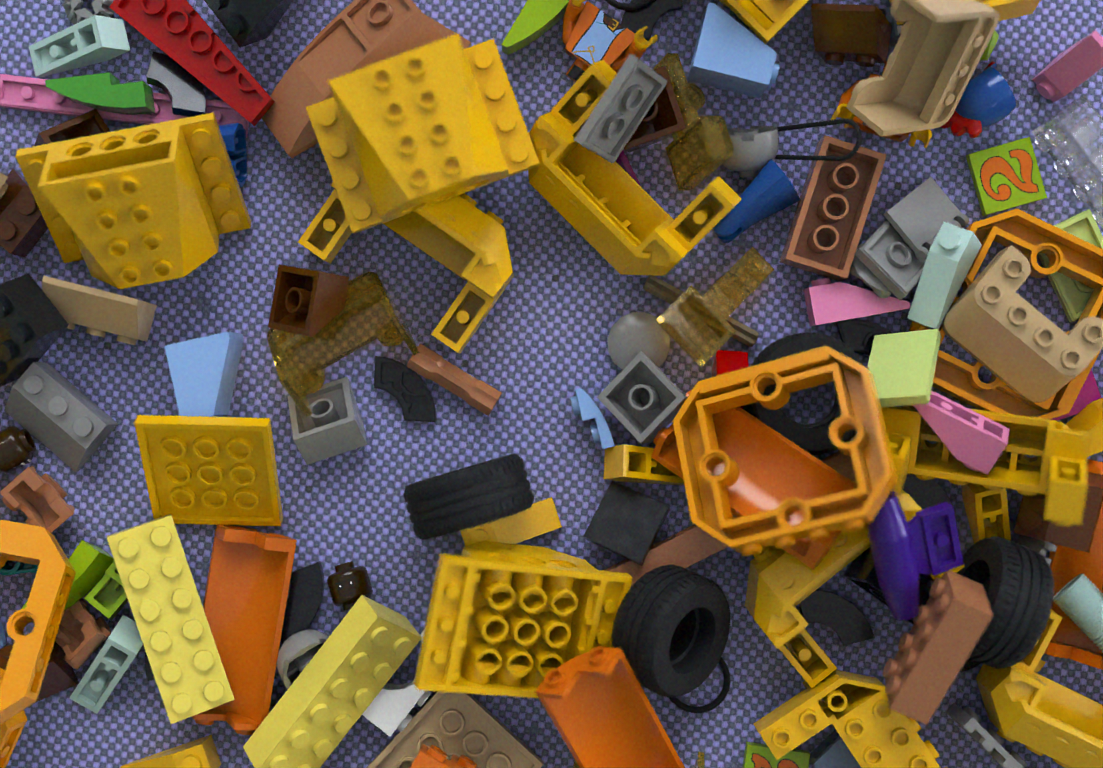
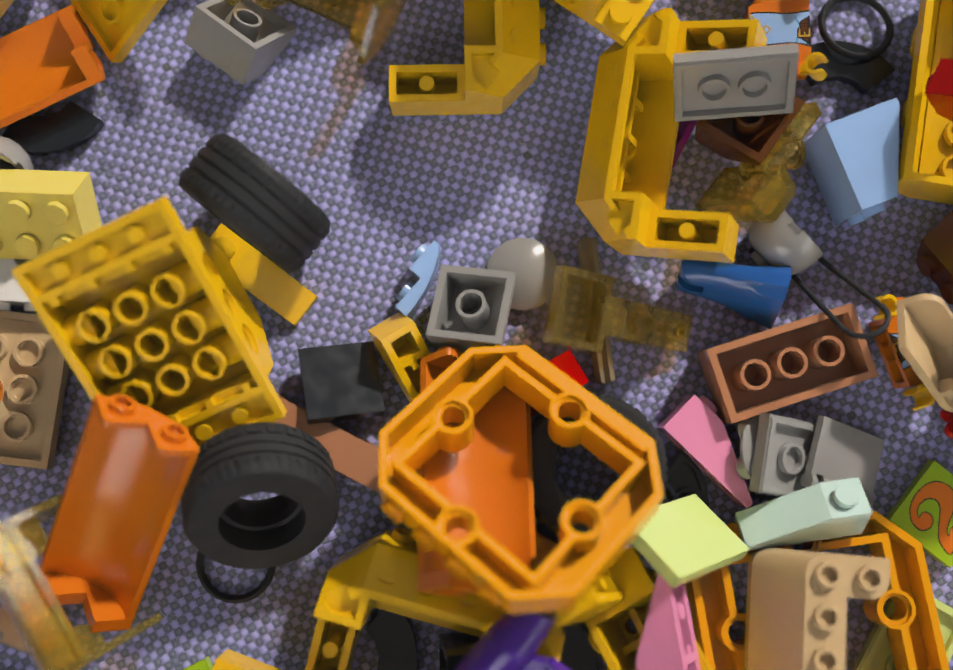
camera: 50 degrees right, 5 degrees down
(349, 584) = (98, 158): dark brown head -> none
(406, 387) = (324, 90): black tile -> none
(436, 368) = (363, 125): nougat axle -> none

